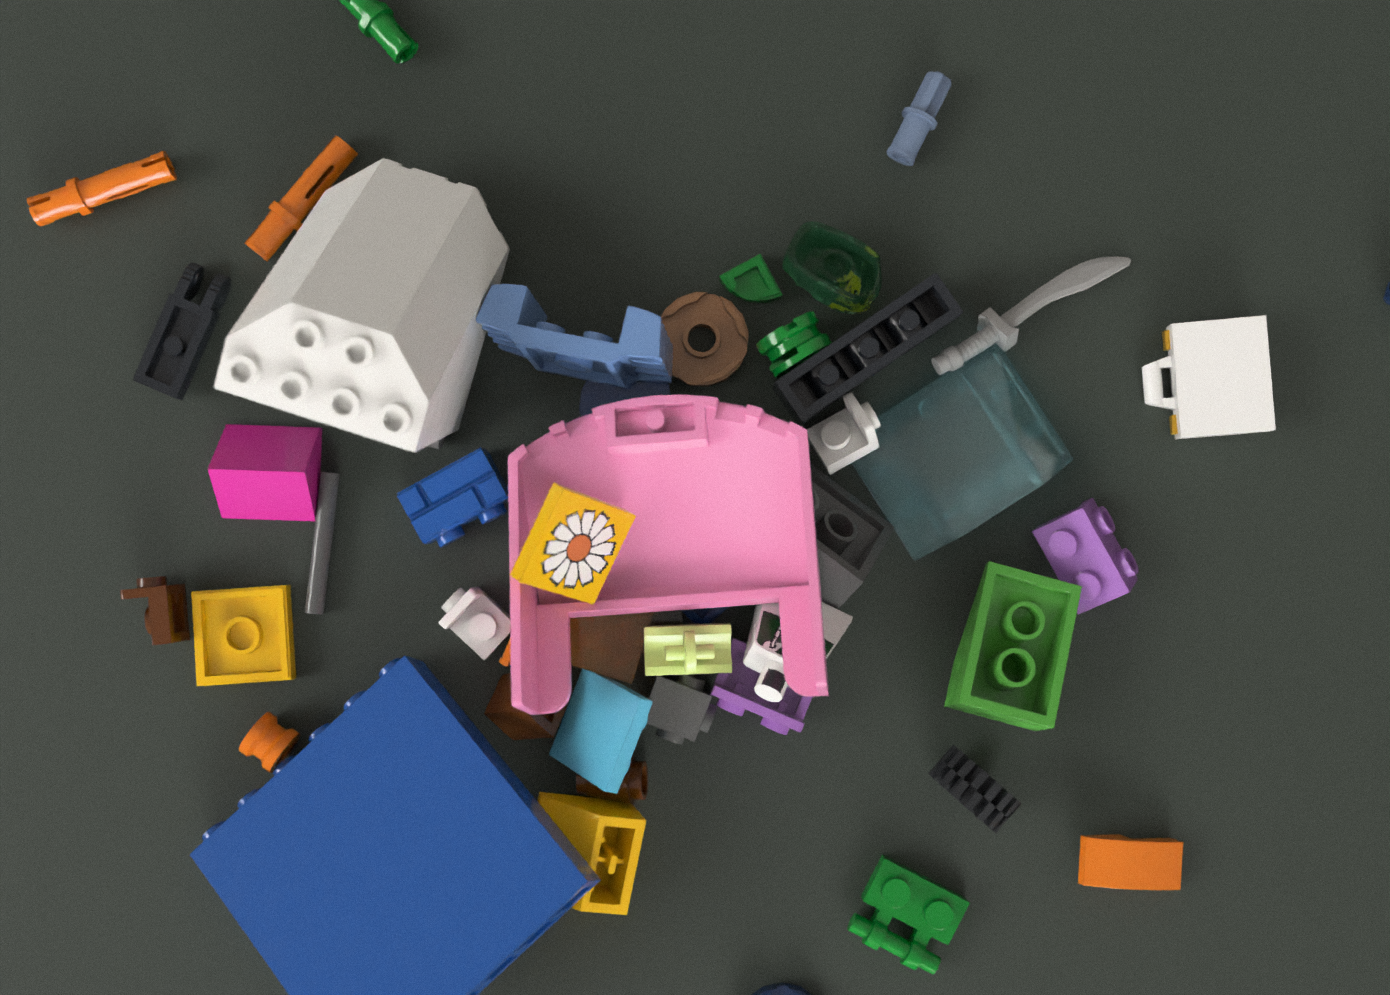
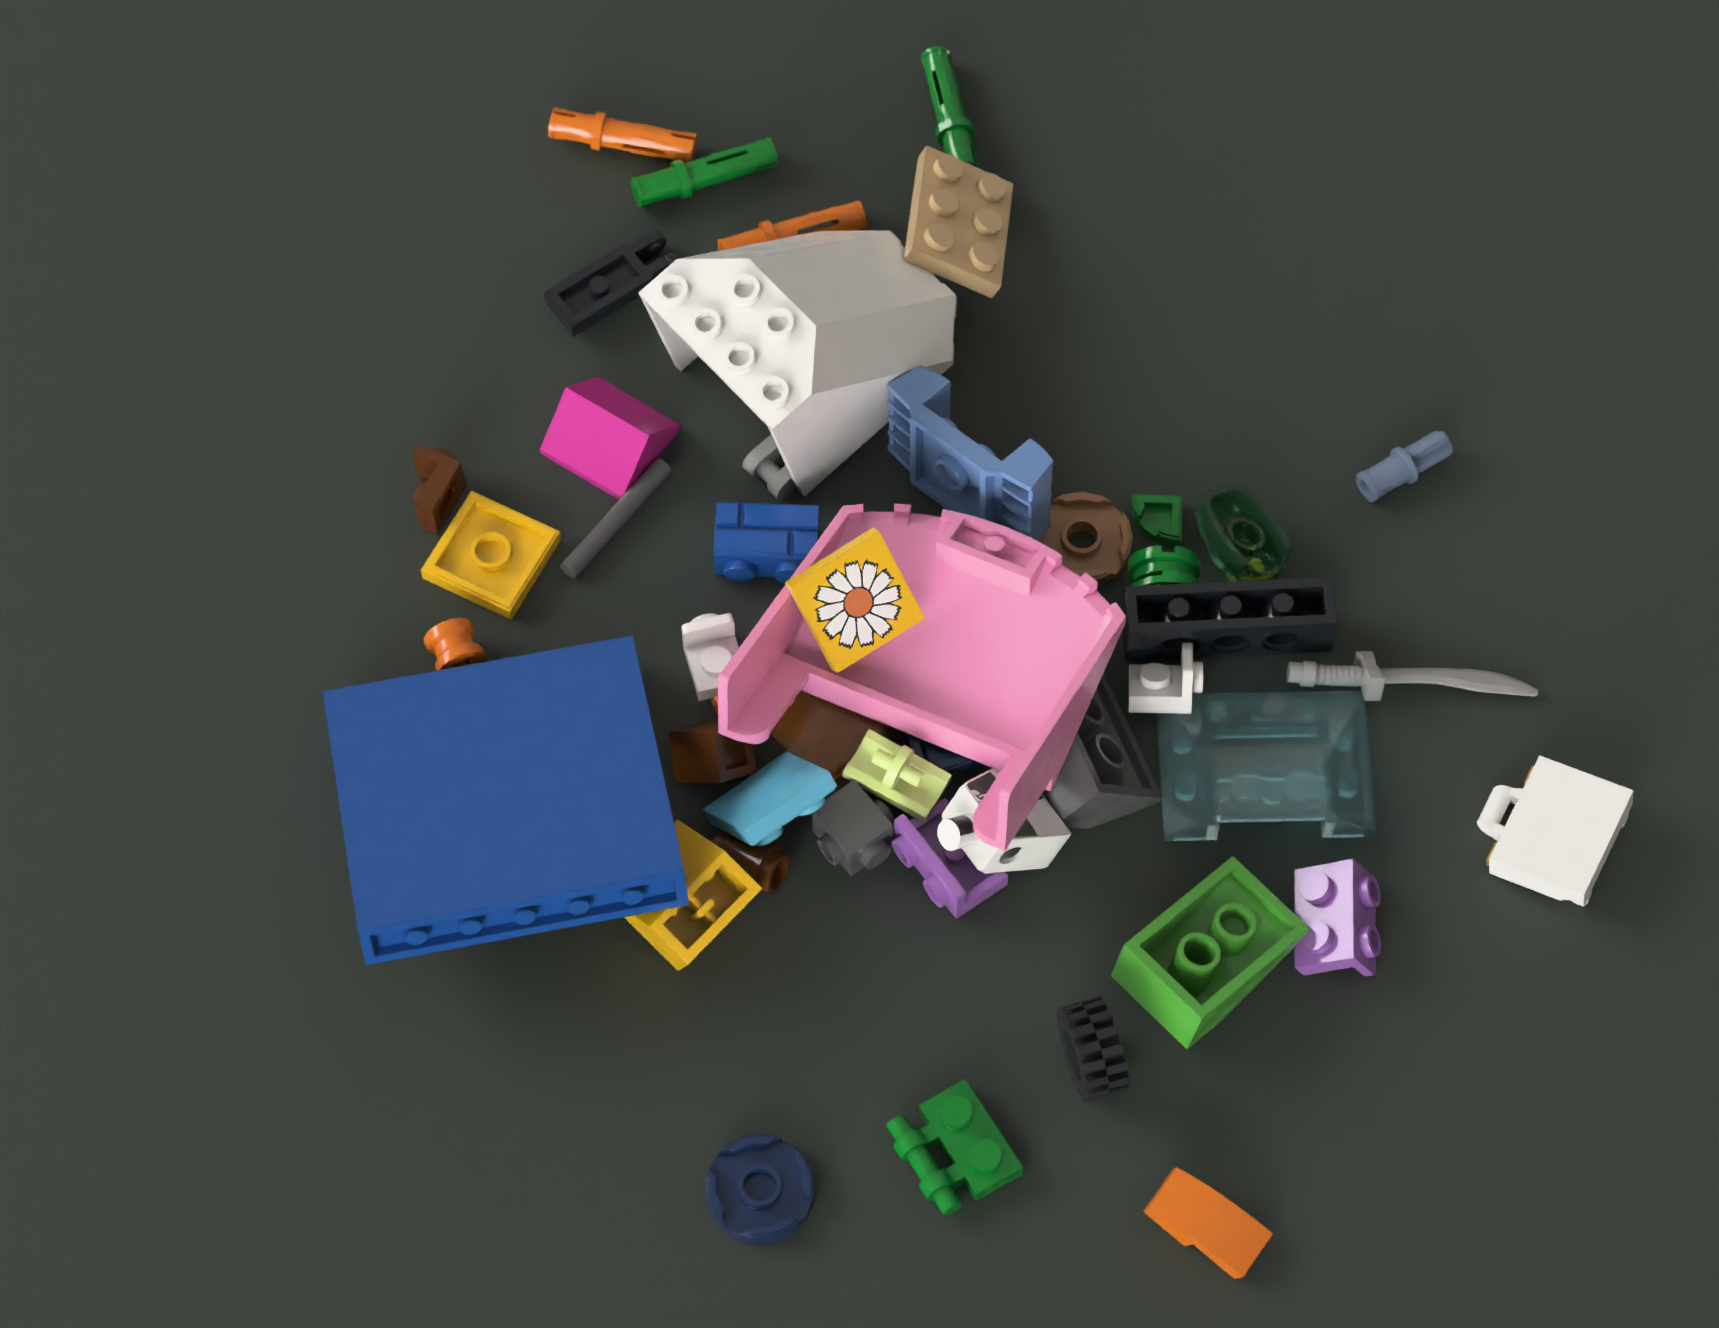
camera: 30 degrees right, 25 degrees down
(191, 183) = (685, 178): none -> green pin
(433, 111) = (958, 222): none -> tan plate

